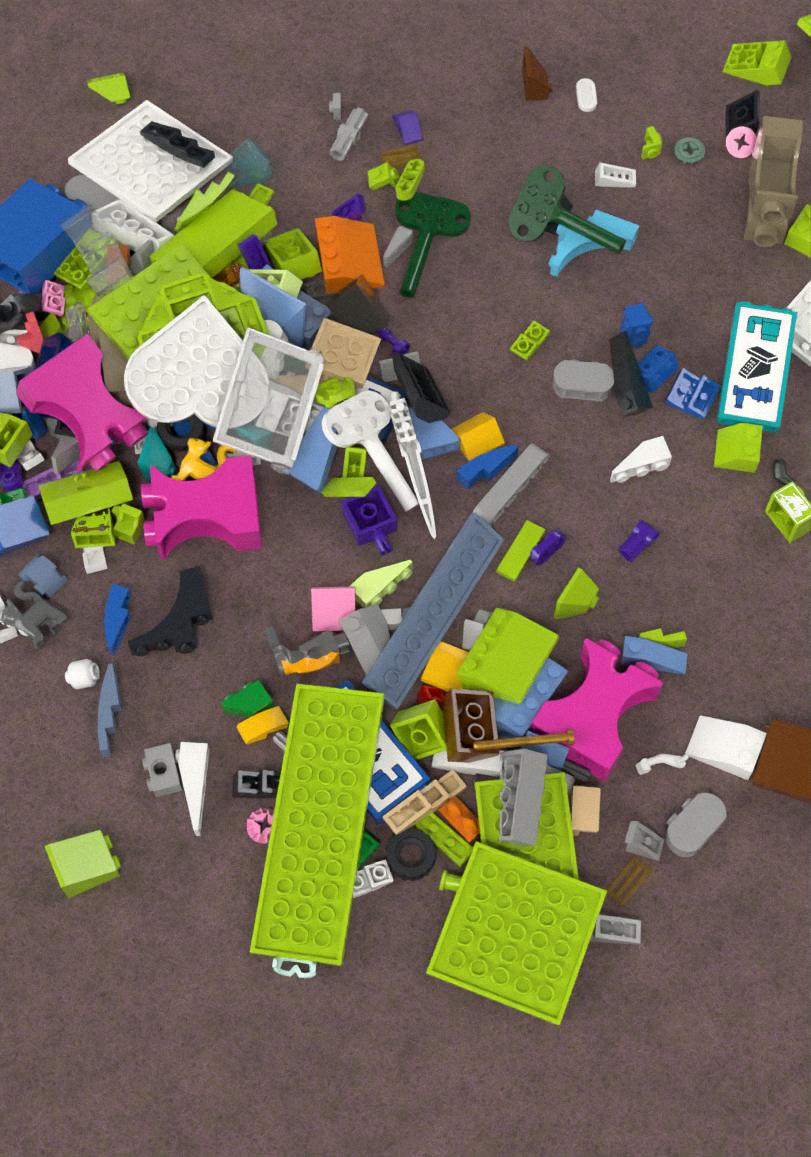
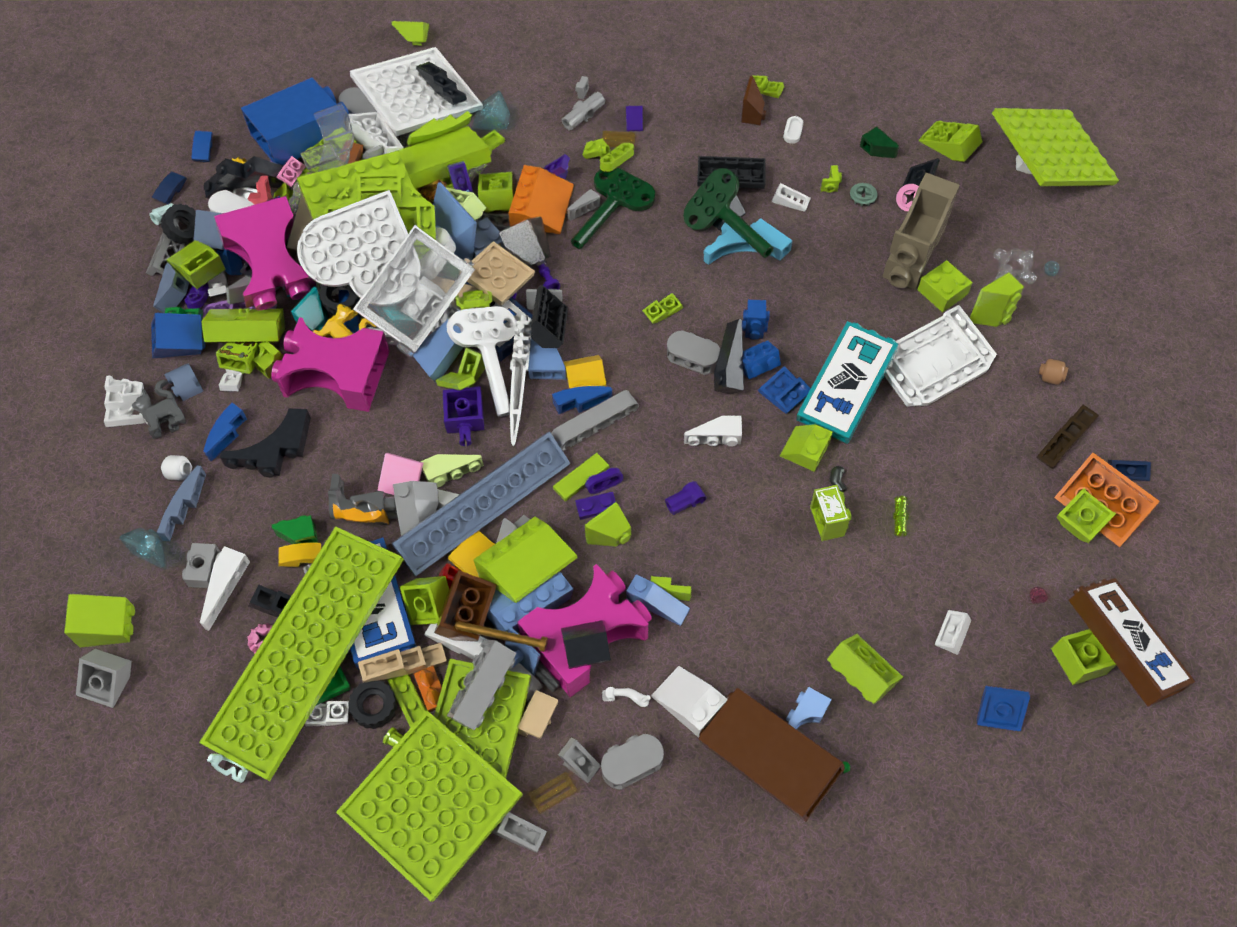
camera: 20 degrees right, 5 degrees down
(93, 769) = (145, 546): none -> clear light blue slope
(113, 921) = (102, 677): none -> light grey slope
(542, 52) = (769, 88): none -> lime slope
(549, 576) = (594, 505): none -> dark purple plate
(561, 155) = (749, 171): none -> black piece
(612, 722) = (586, 644): none -> black slope
(685, 88) = (878, 144): none -> dark green slope

